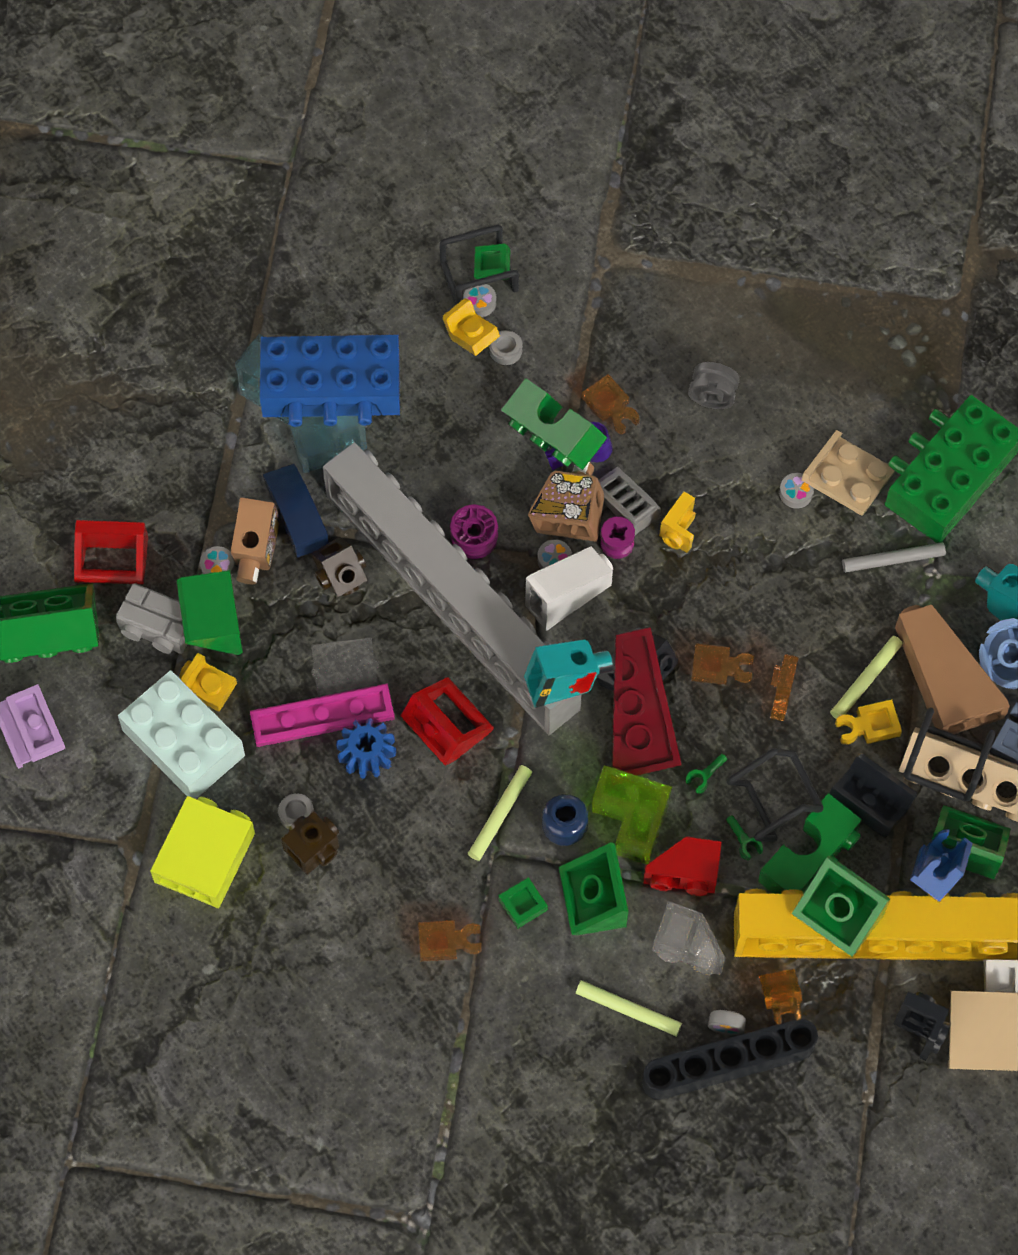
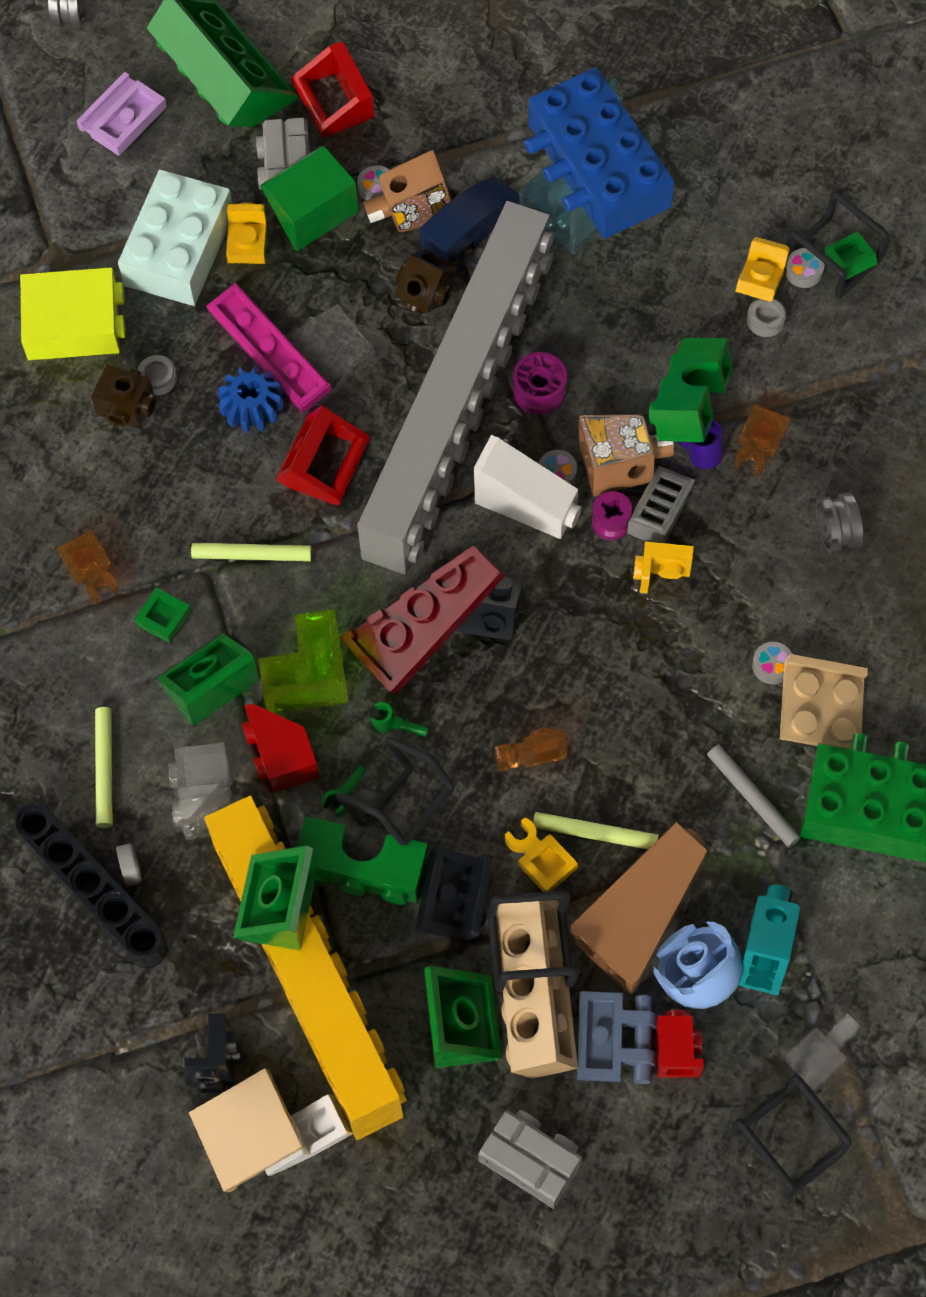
camera: 65 degrees right, 0 degrees up
(564, 671) = (394, 508): teal torso -> none
(565, 819) = (266, 608): dark blue head -> none
(714, 665) = (523, 674): clear orange plate -> none
(781, 993) = (186, 899): clear orange plate -> none
(940, 868) = (386, 982): blue hinge -> none

